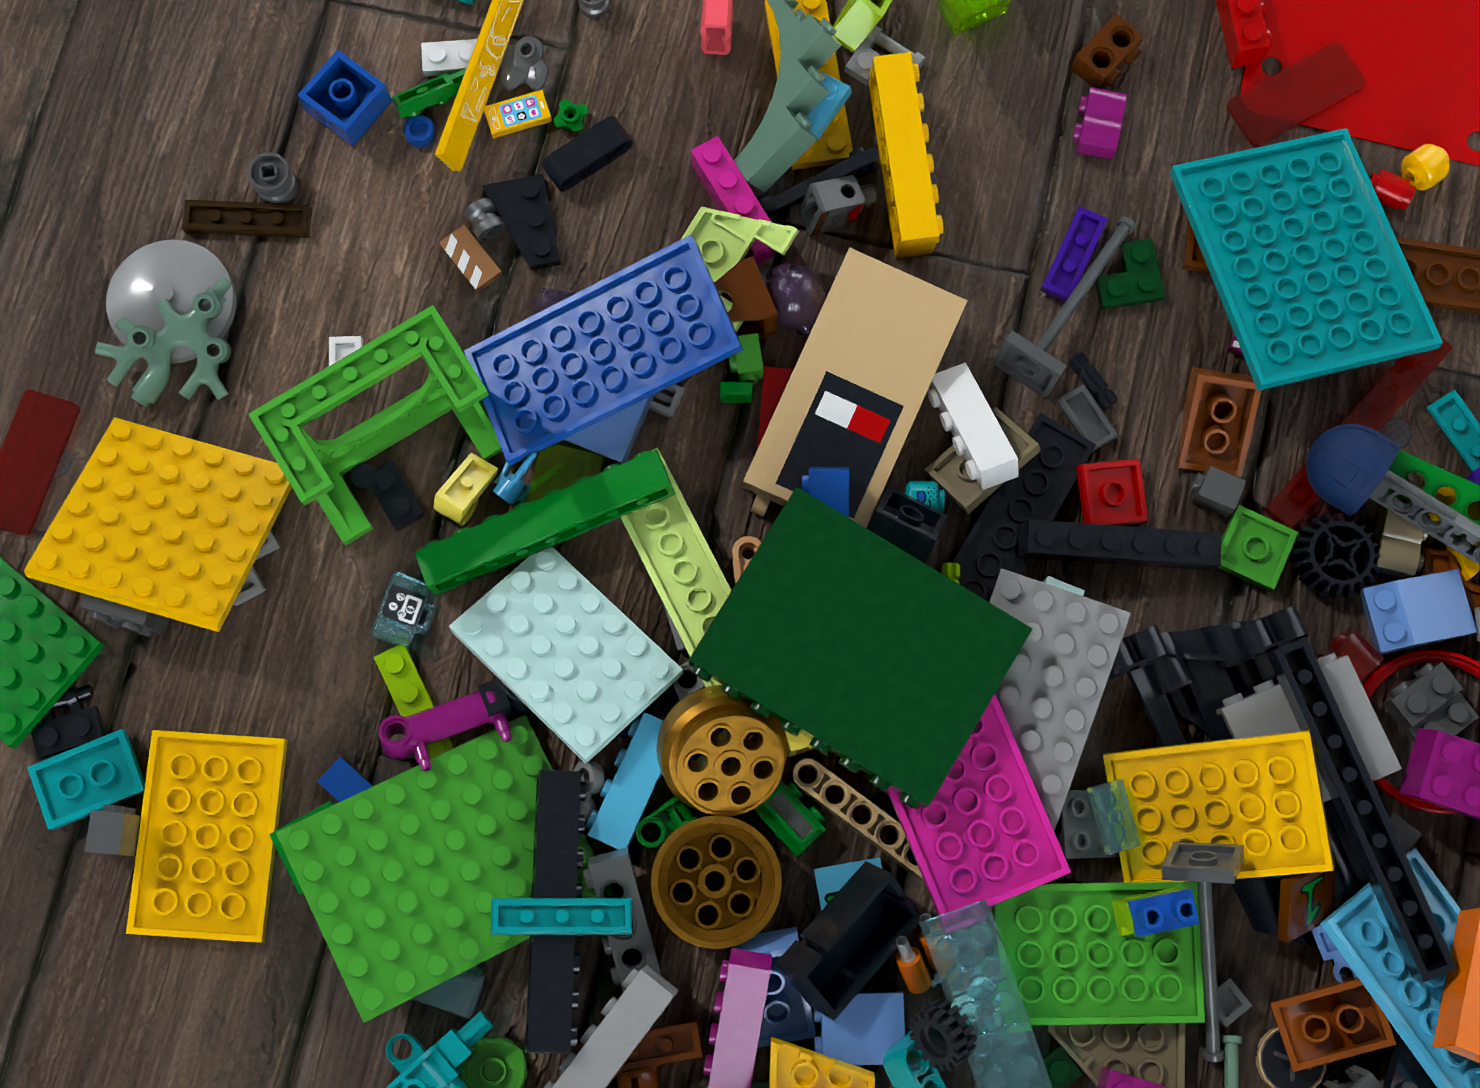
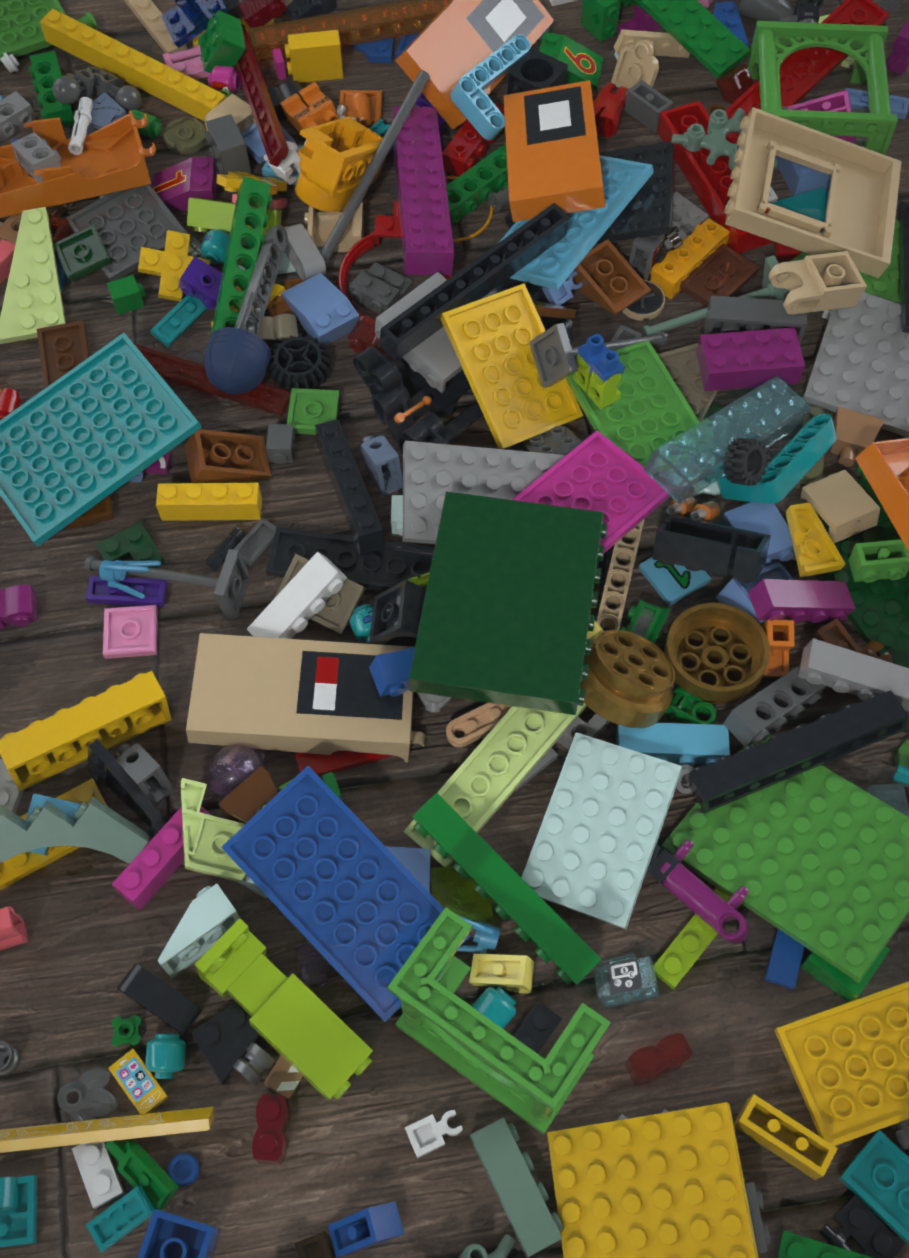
camera: 110 degrees left, 15 degrees down
(179, 689) = (785, 1137): none -> yellow brick
(227, 419) = (516, 1188): none -> sand green brick
(288, 270) = (366, 1229): none -> blue slope
(311, 595) = (665, 1057): none -> clear red brick
(400, 63) = (120, 1219): none -> teal plate
(415, 215) = (269, 1140): none -> dark red brick
(432, 464) = (496, 1006): none -> teal head
(511, 252) = (285, 1012): none -> lime brick
(529, 142) = (165, 1055): none -> teal head
(561, 916) = (803, 736): teal tile -> none
(638, 209) = (198, 930): none -> light aqua slope
(694, 962) = (781, 640): none -> orange brick
(1021, 245) = (130, 631): none -> bright pink tile
(1095, 242) = (116, 570): none -> dark azure plant
(1112, 492) = (309, 506): red tile -> none
(1113, 816) = (543, 427): clear light blue plate -> none
(1143, 596) = (379, 453): none -> sand blue torso
(1161, 379) = (209, 501): none -> yellow brick
(1192, 640) = (400, 417): none -> orange hinge

